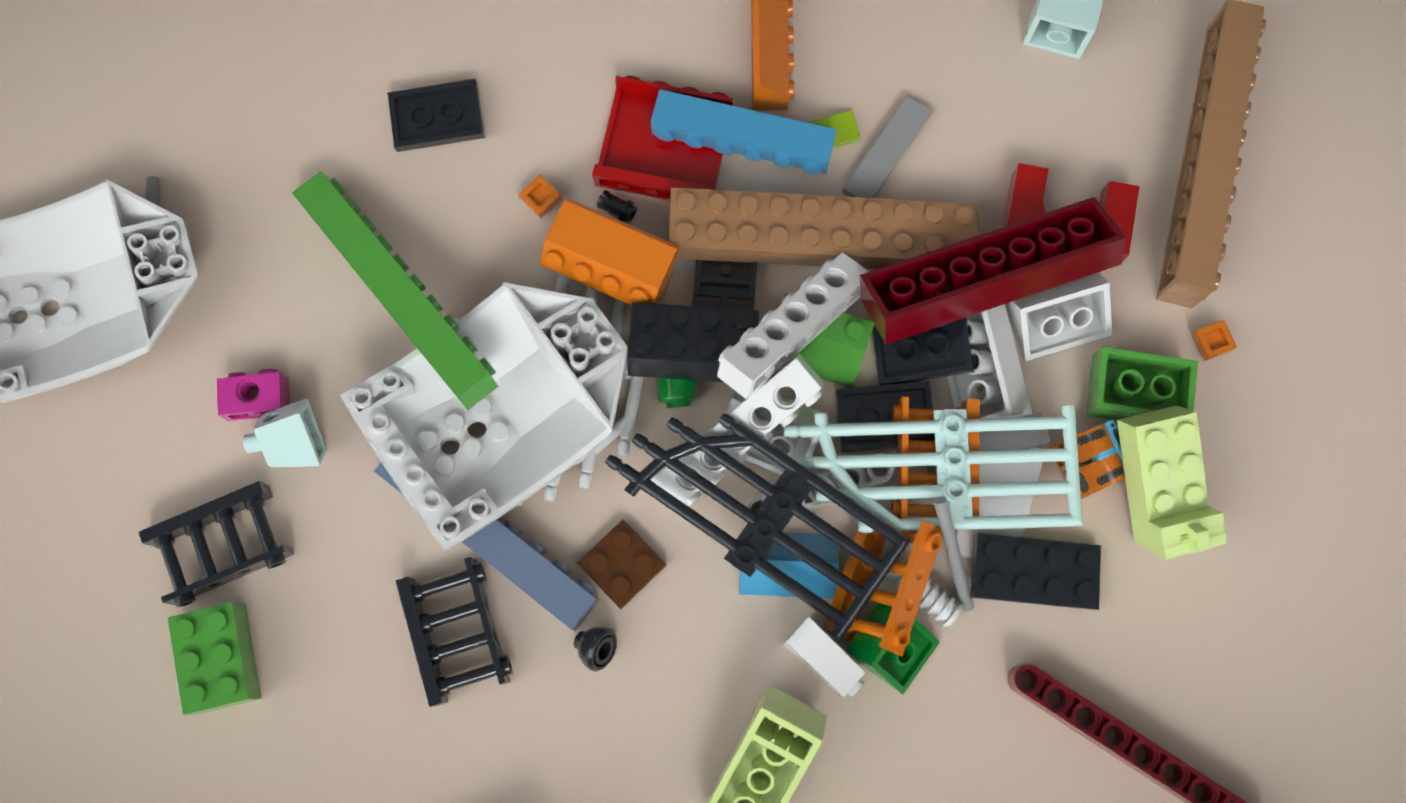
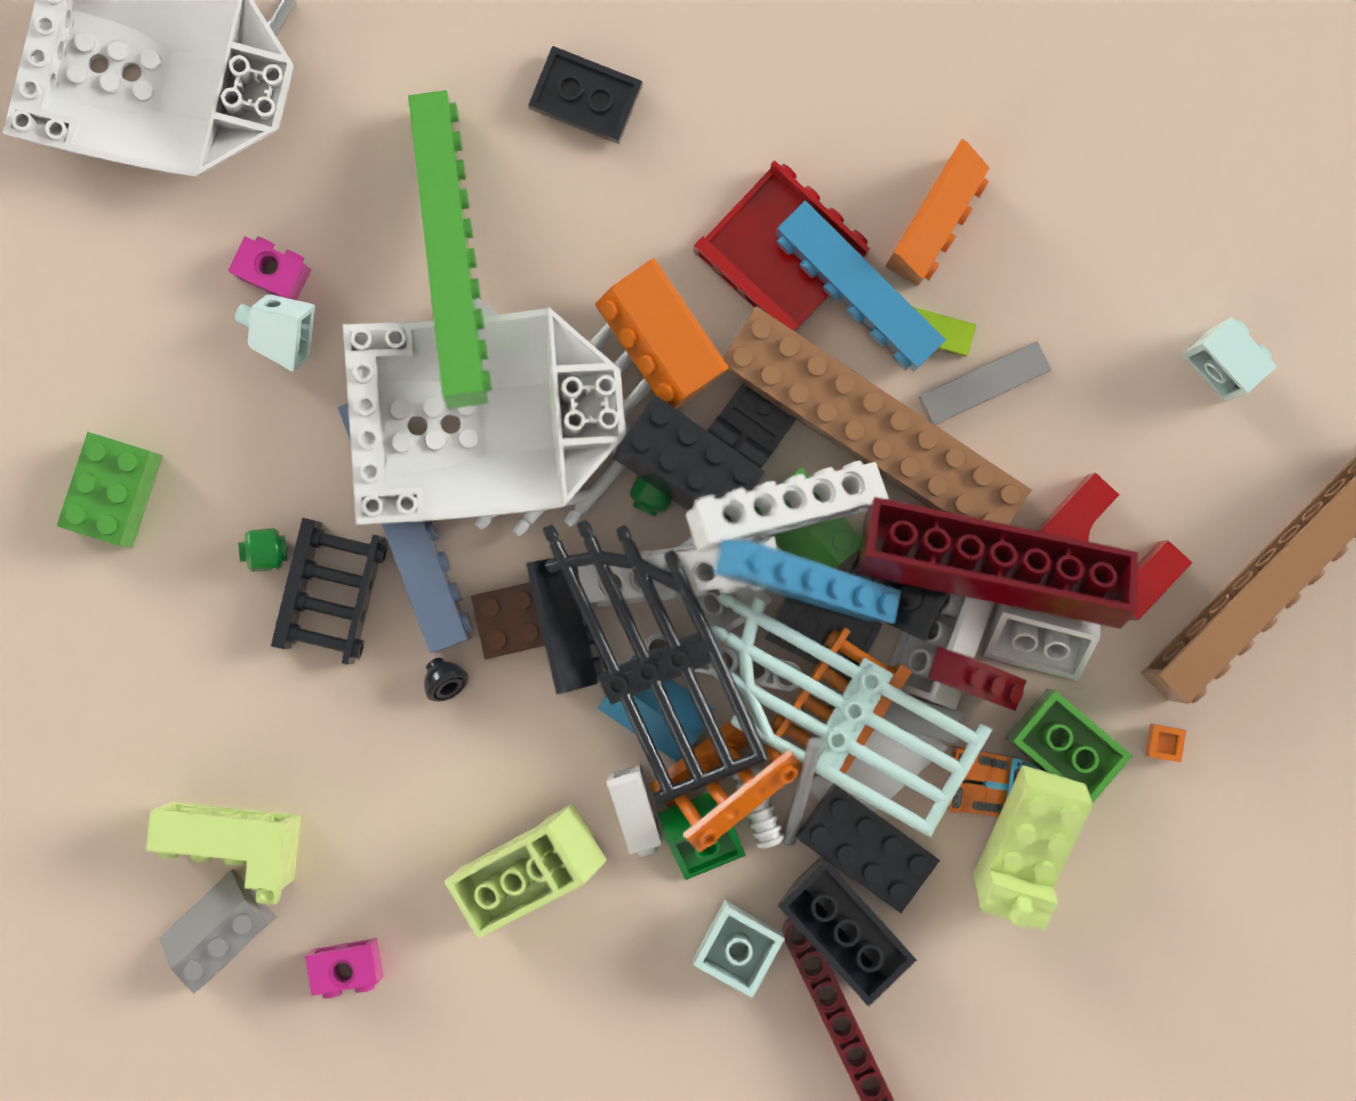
camera: 30 degrees right, 10 degrees up
(193, 524) = (154, 358): black fence -> none
(376, 630) = (263, 549): none -> green head
(540, 196) = (635, 234): orange plate -> none
(616, 206) = (701, 288): black pin -> none
(671, 540) = (563, 630): none -> black slope
(849, 369) = (806, 581): none -> dark azure brick
(985, 723) = (738, 948): none -> light aqua brick
(1034, 374) = (977, 678): none -> dark red brick
(1065, 649) = (845, 931): none -> black slope

